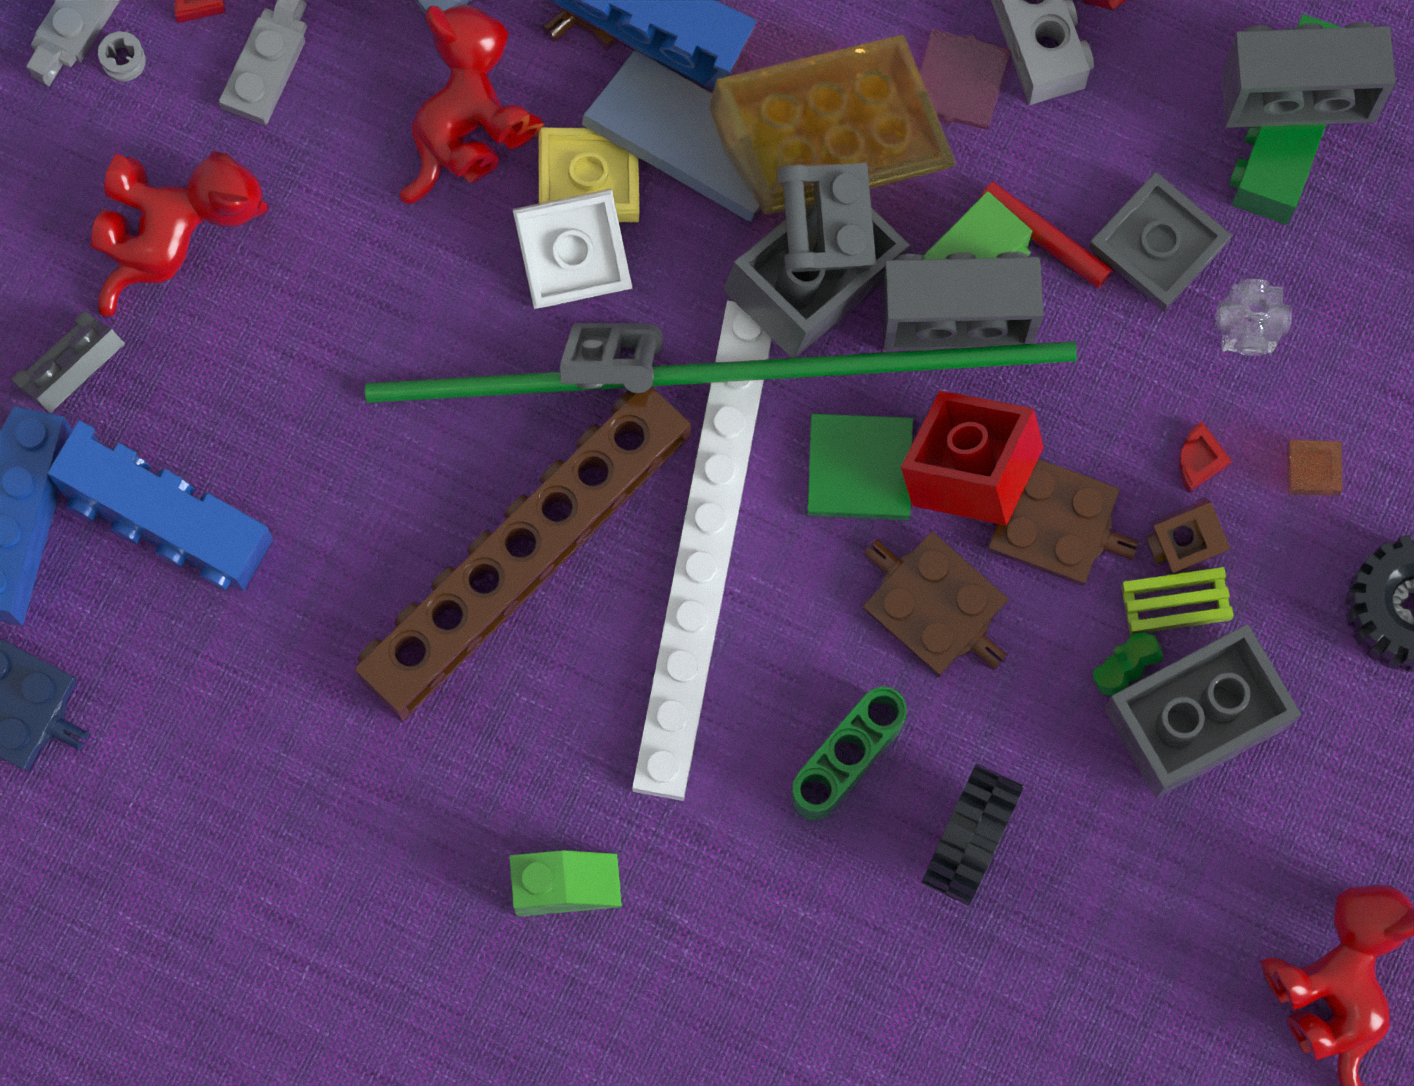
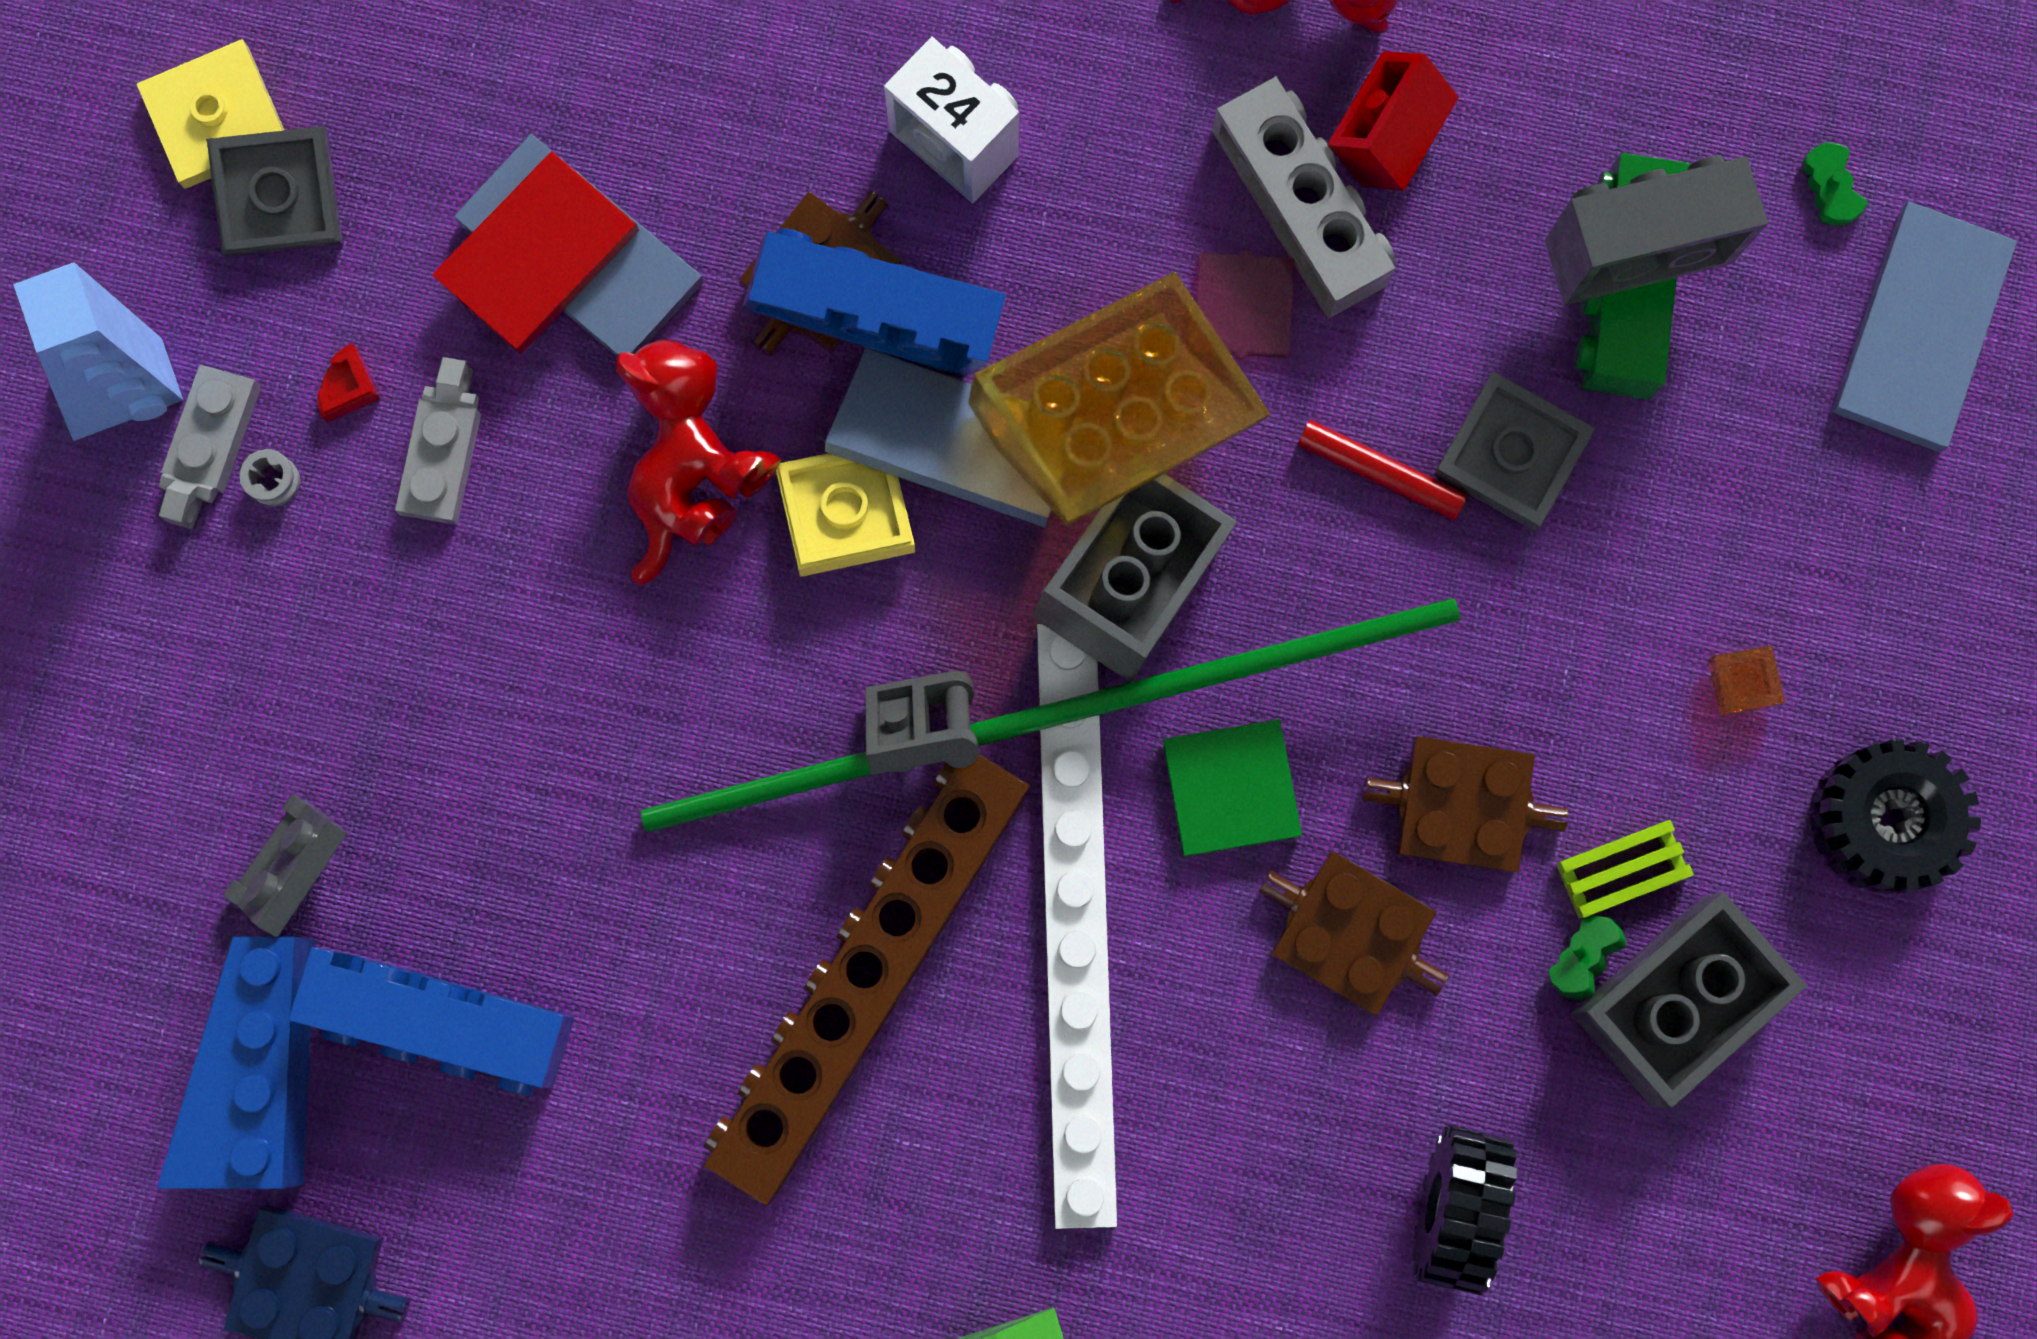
camera: 15 degrees left, 5 degrees up
(216, 193) = (415, 626): red animal -> none
(572, 248) = (846, 602): white tile -> none
(841, 213) = (1156, 511): dark grey plate -> none
(855, 729) = (1320, 1115): green beam -> none
(960, 301) = (1310, 574): dark grey brick -> none
(972, 457) = (1364, 759): red brick -> none
(985, 232) = (1312, 499): bright green slope -> none
(1201, 457) = (1613, 694): red tile -> none
(1205, 541) = (1641, 798): reddish brown brick -> none
(1241, 326) = (1628, 533): clear brick -> none

